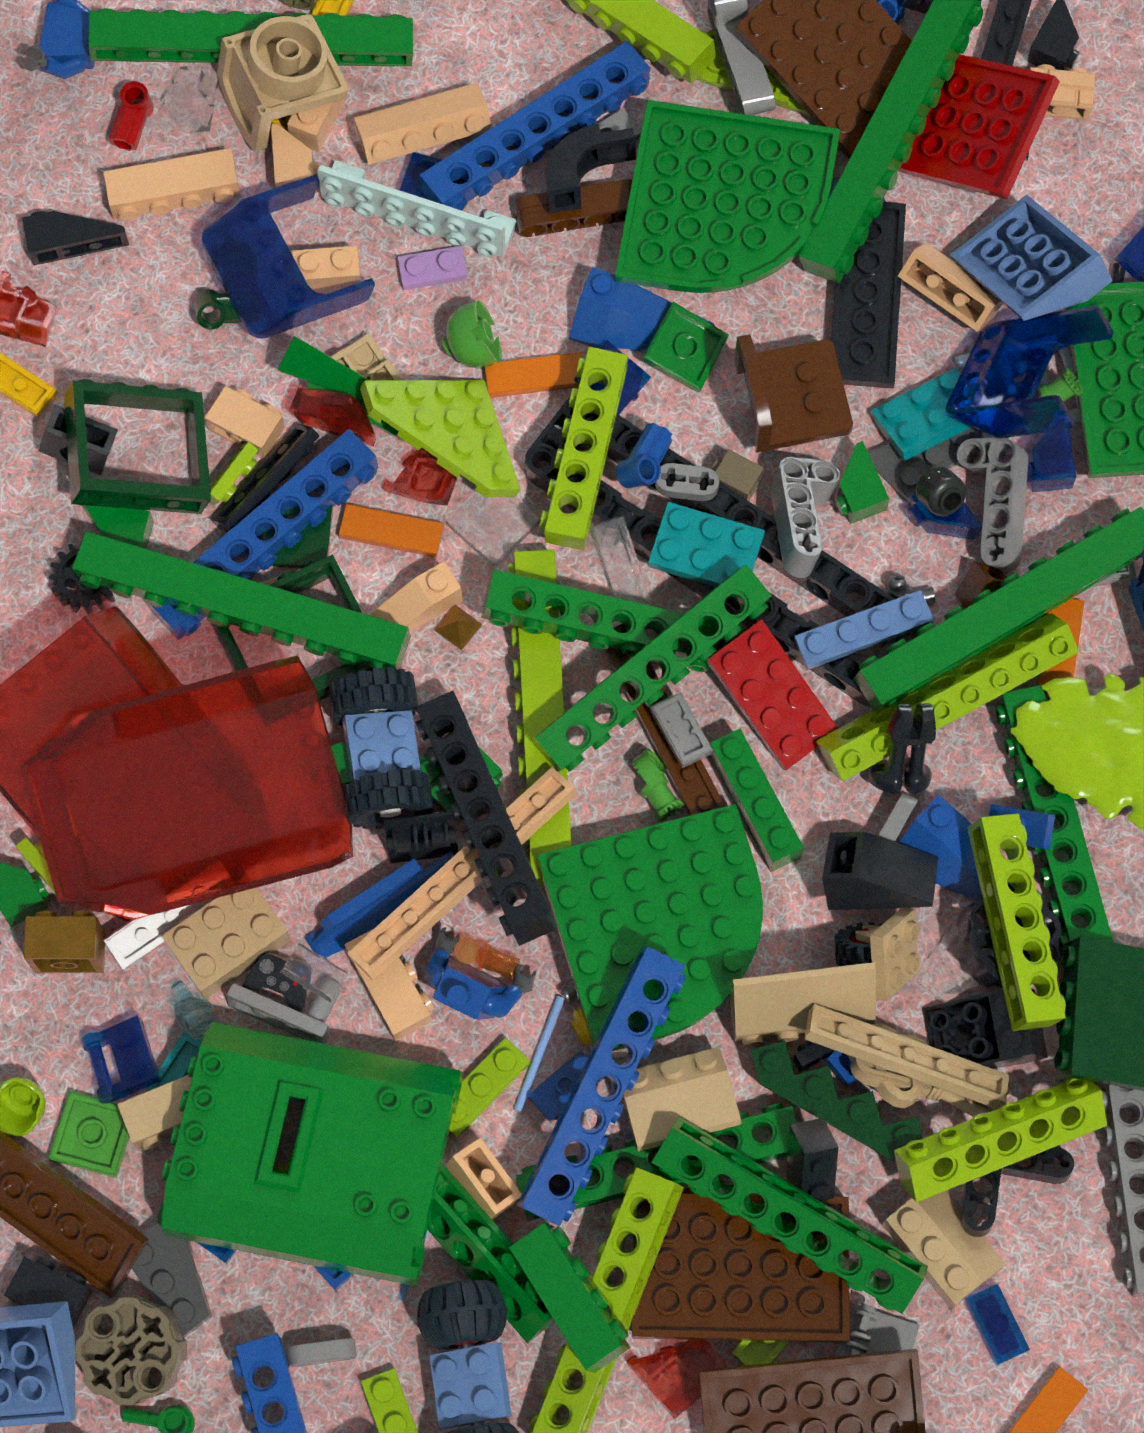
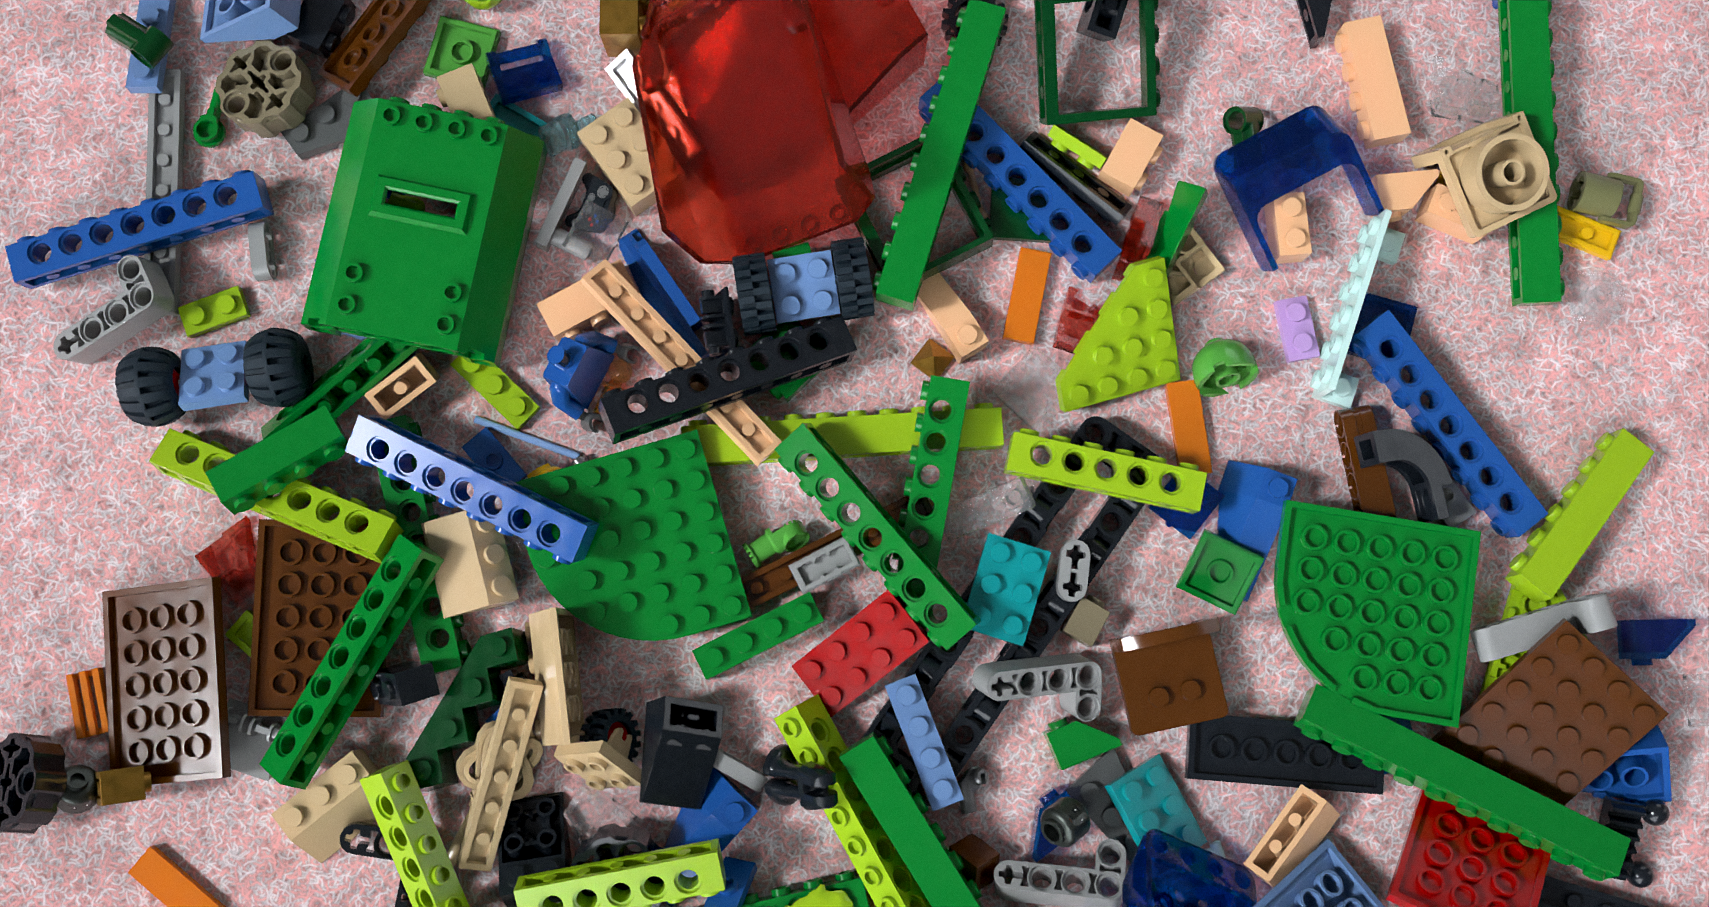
camera: 85 degrees right, 10 degrees up
(122, 524) = (1018, 53): green slope -> none
(131, 118) = (1440, 42): red piece -> none
(423, 123) = (1447, 315): light nougat brick -> none
(644, 461) = (1094, 529): blue piece -> none
(997, 1324) = (263, 854): clear blue plate -> none

